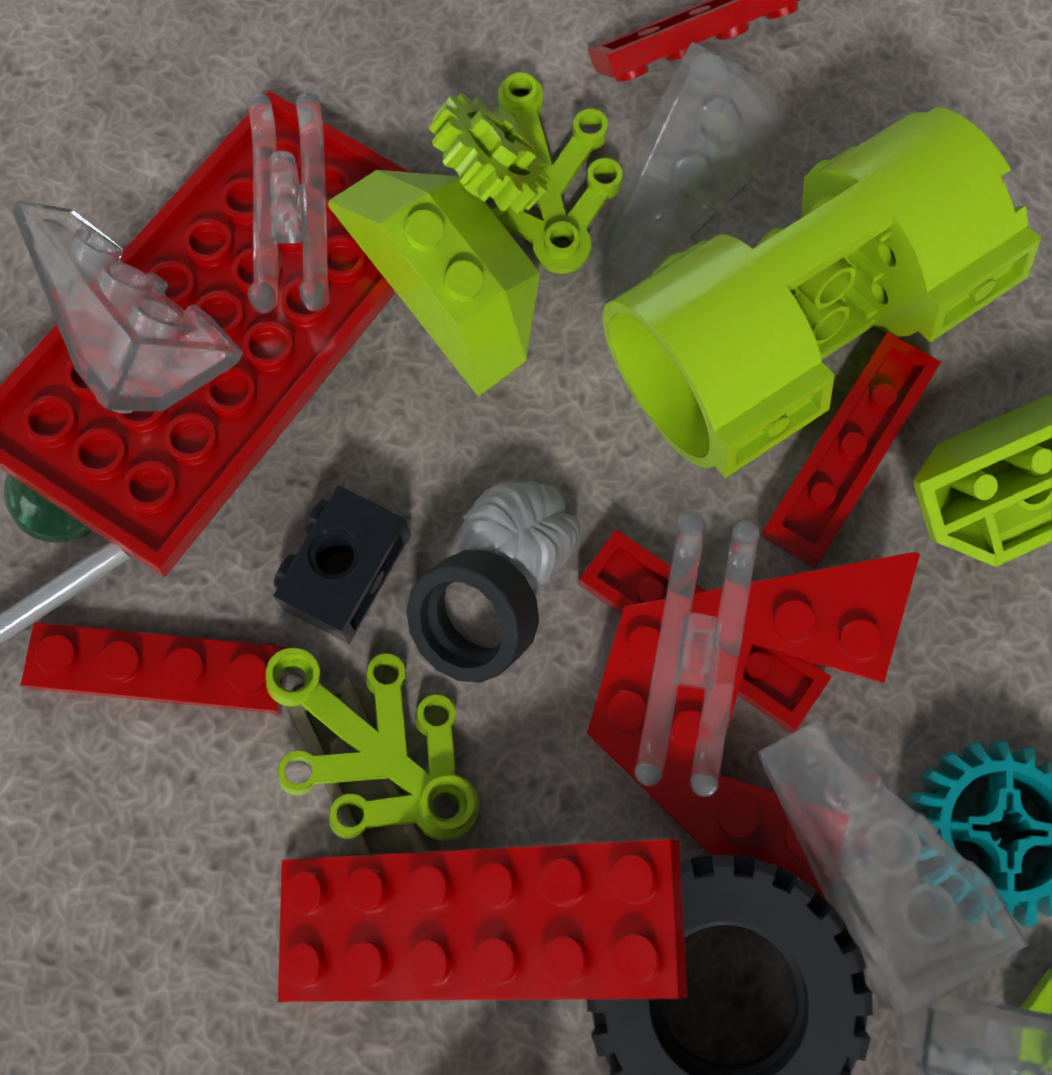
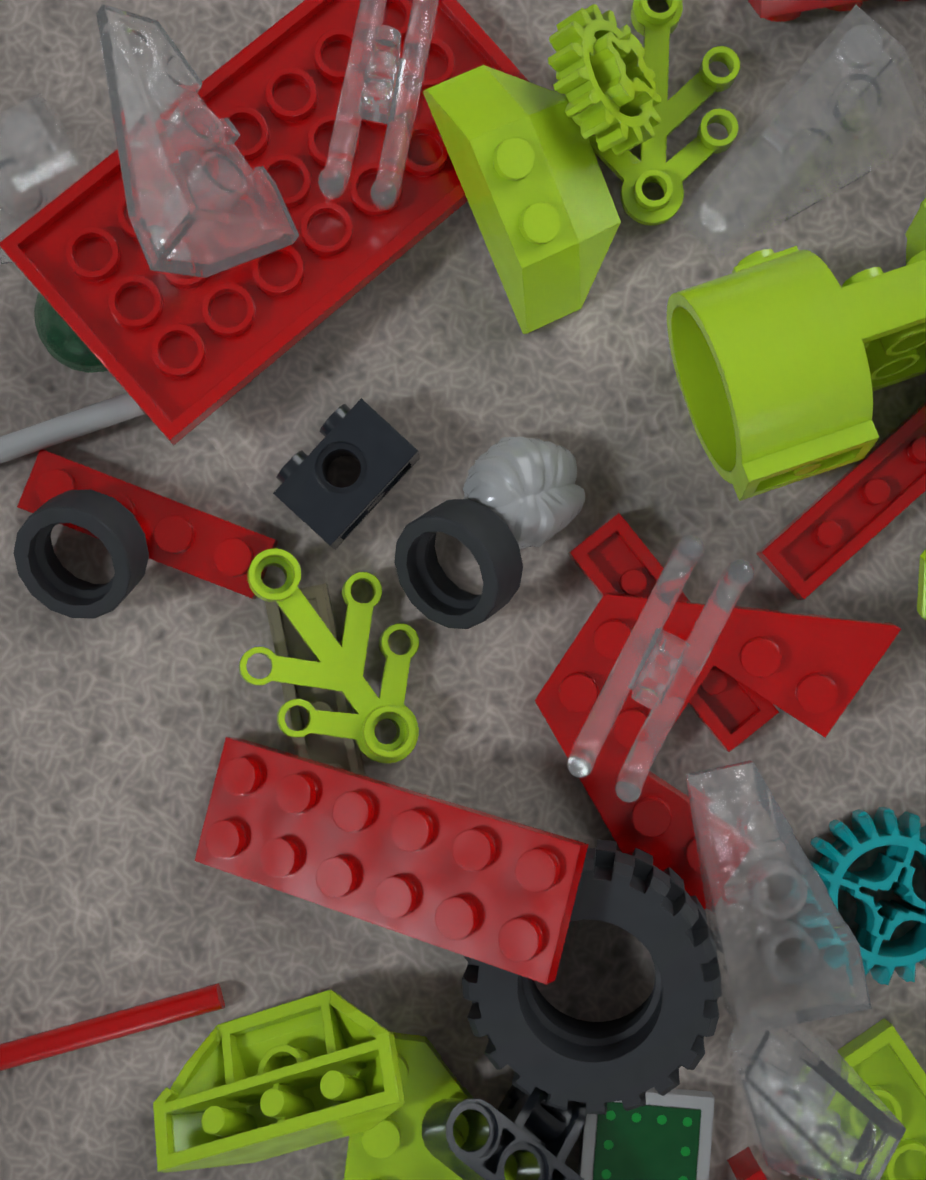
camera: 10 degrees right, 15 degrees up
(56, 737) = (52, 582): none -> black tyre

